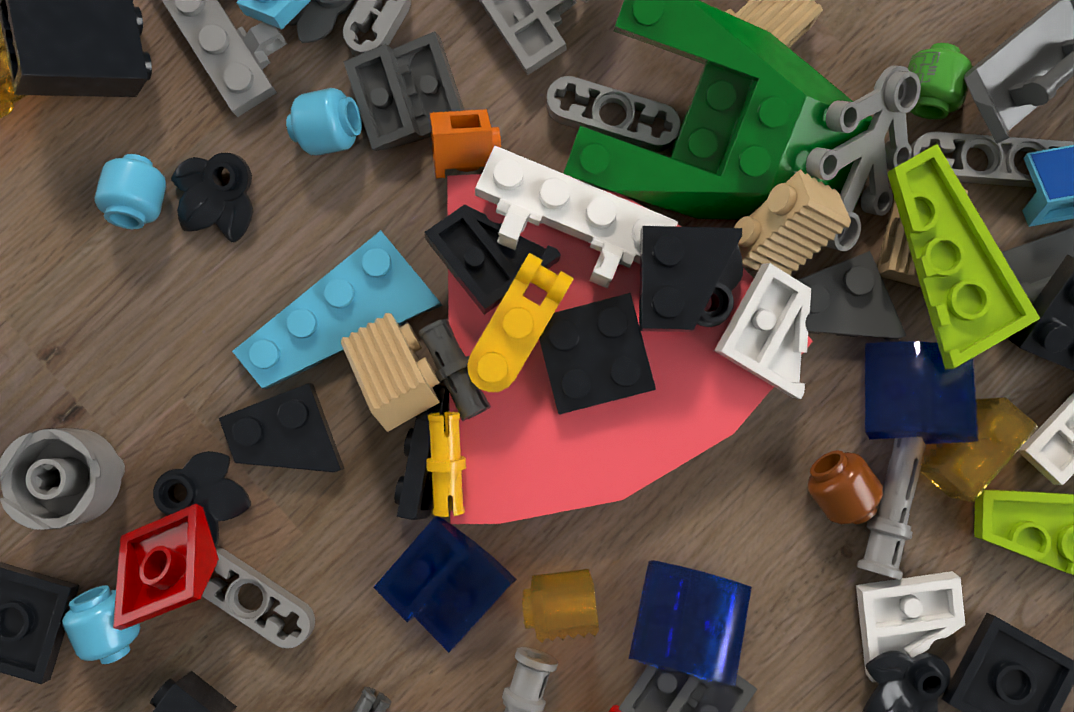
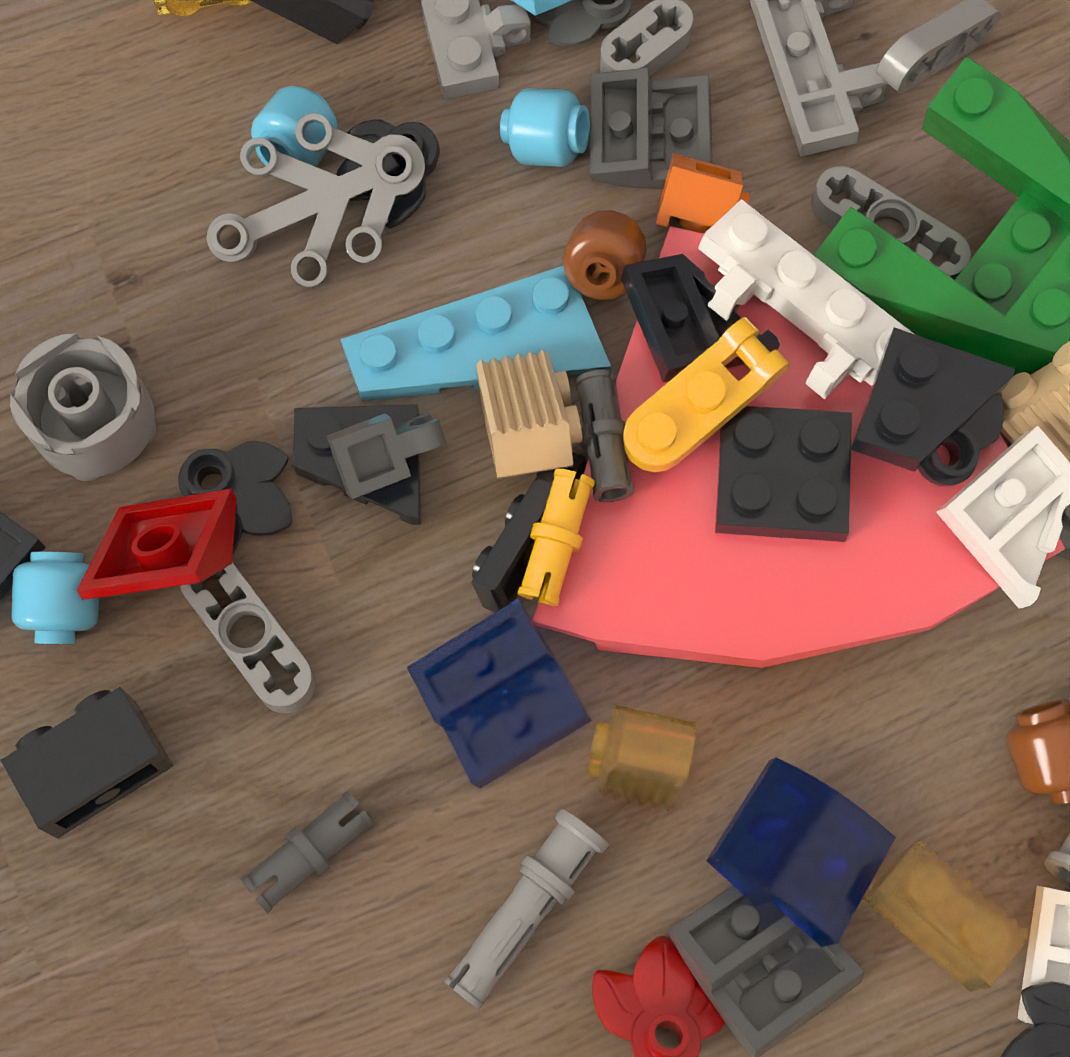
camera: 15 degrees right, 15 degrees down
(174, 241) = (325, 196): none -> light grey plant
(293, 442) = (376, 452): none -> dark grey plate
(403, 216) = (600, 251): none -> dark orange head
(802, 634) = (946, 917): none -> clear yellow brick

